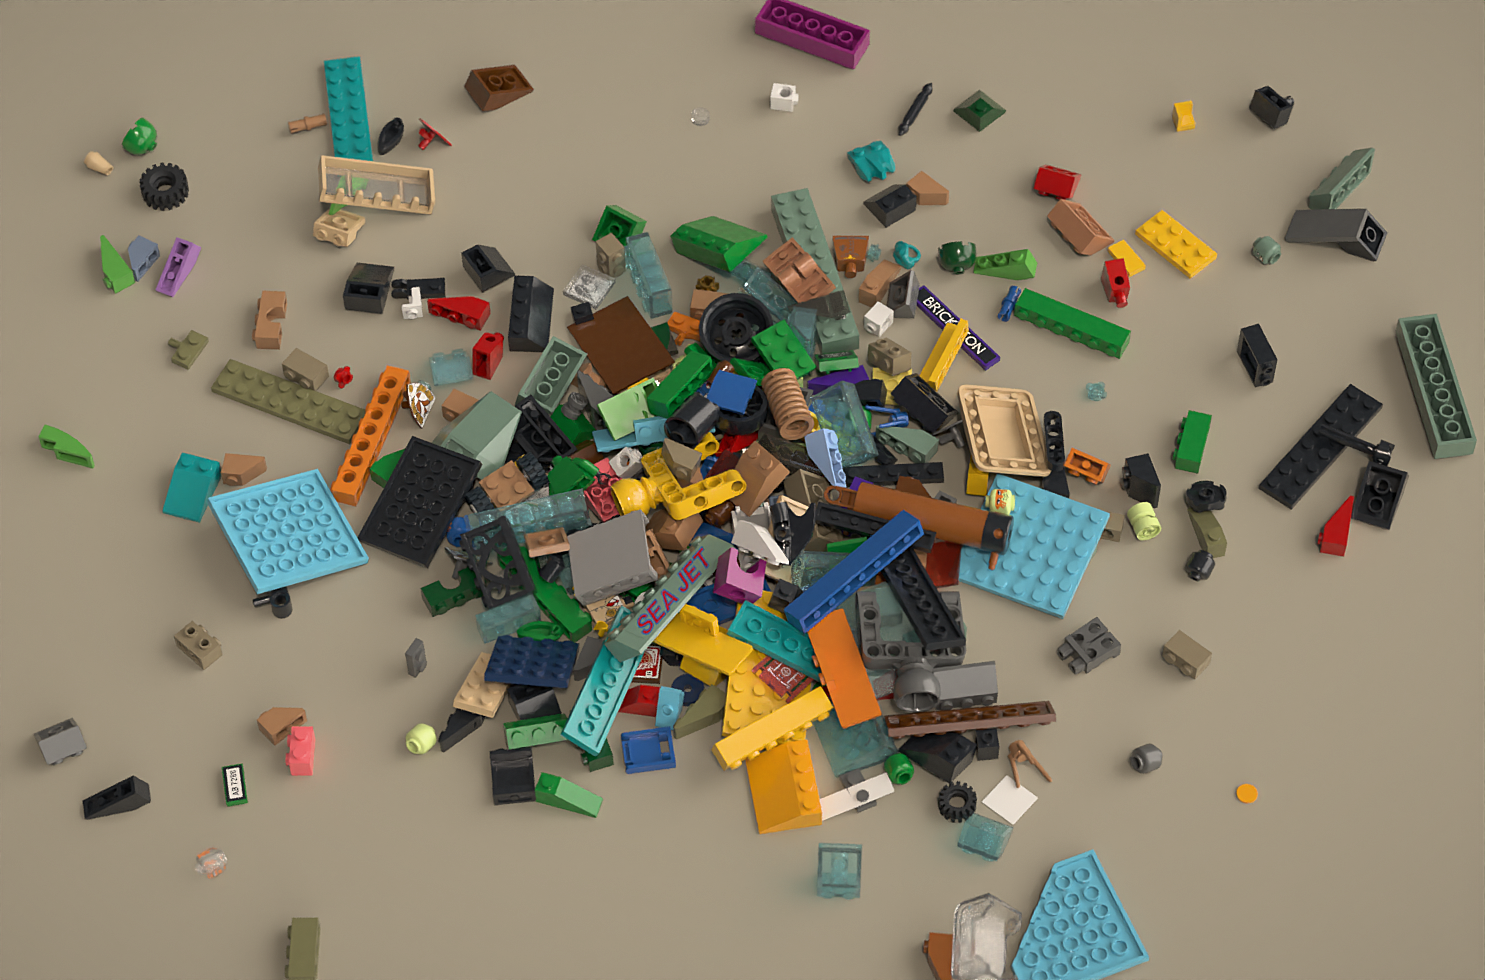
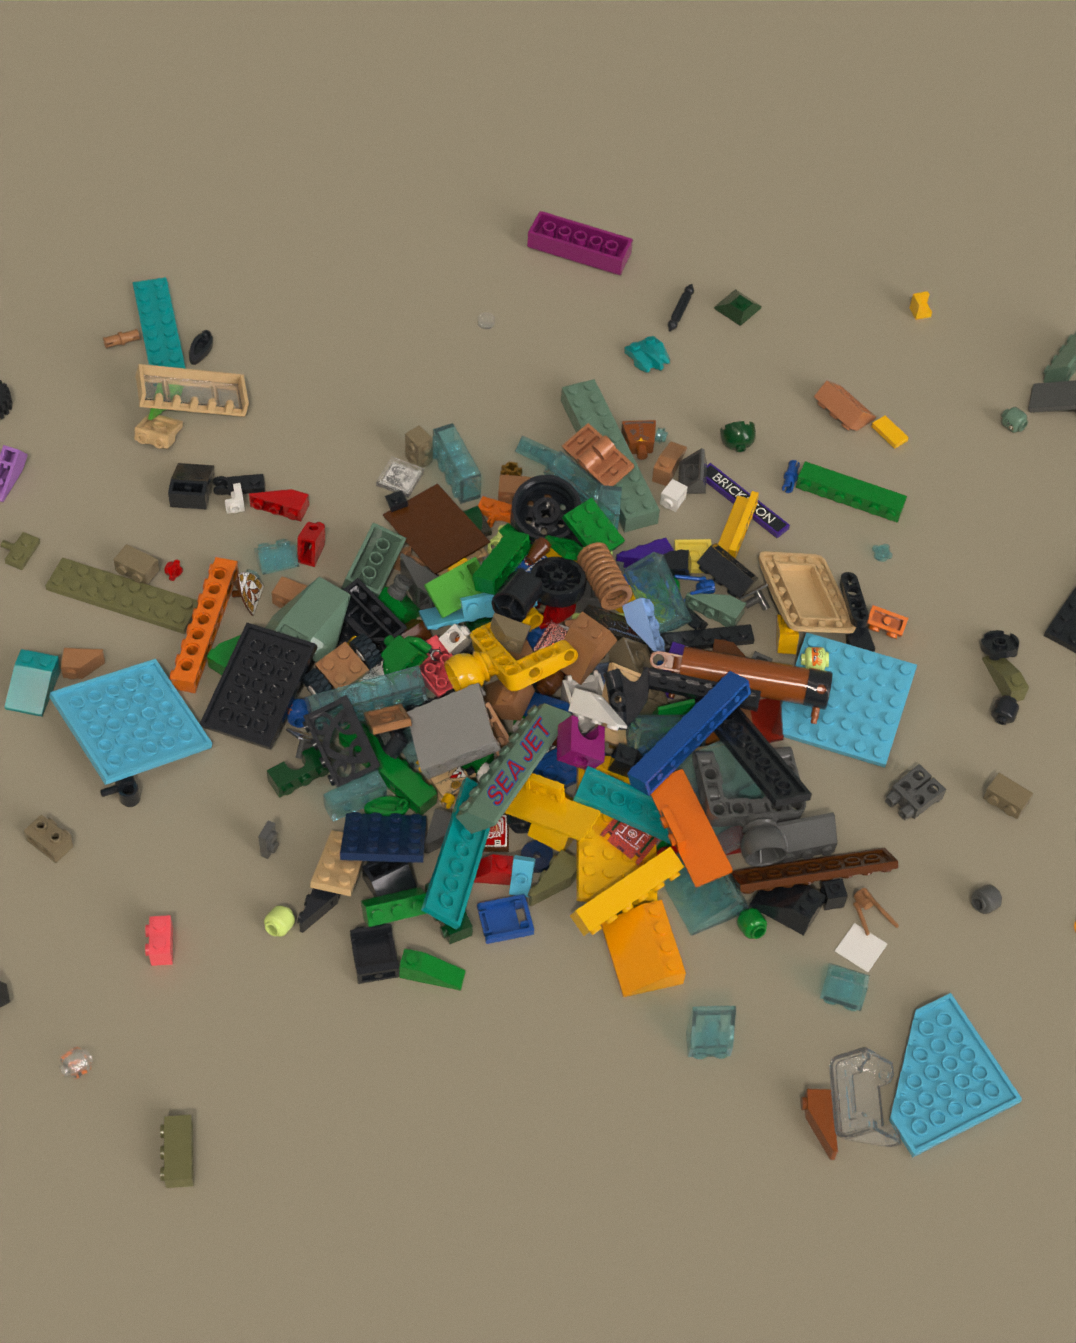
camera: 10 degrees left, 0 degrees up
(234, 785) = (94, 979): tile -> none
(270, 306) = (98, 532): medium nougat arch -> none
(278, 722) = (135, 912): medium nougat slope -> none
(428, 136) = (237, 345): red shield -> none
(486, 266) = (301, 461): black slope -> none
(497, 86) = (296, 299): reddish brown slope -> none
(530, 315) = (347, 504): black slope -> none
(619, 223) = (424, 416): green slope -> none
(716, 242) = (515, 431): green slope -> none
(731, 391) = (551, 566): blue slope -> none
(783, 97) = (560, 301): white brick -> none
(827, 305) = (632, 483): clear smoke slope -> none
(836, 361) = (642, 534): green container -> none
(843, 801) = (715, 952): white sticker -> none
(853, 778) = (714, 947): dark grey plate -> none
(889, 356) = (689, 528): dark tan brick -> none
(892, 204) = (671, 391): black slope -> none
(901, 255) = (687, 438): teal piece -> none
(928, 190) = (701, 379): medium nougat slope -> none
(957, 812) = (812, 942): black tyre -> none
(1007, 265) = (785, 442): bright green slope -> none
(1056, 182) = (817, 366): red slope -> none
(1113, 527) = (920, 678): dark tan brick -> none
(1116, 282) = (886, 452): red torso -> none
(1141, 480) = (940, 633): black slope -> none
(1144, 521) = (945, 669): yellowish green wheel -> none
(1176, 244) = (932, 417): yellow plate -> none
(1192, 441) = (978, 595): green brick -> none
(1257, 355) = (1019, 499): black window -> none
(1271, 106) = (997, 294): black brick -> none

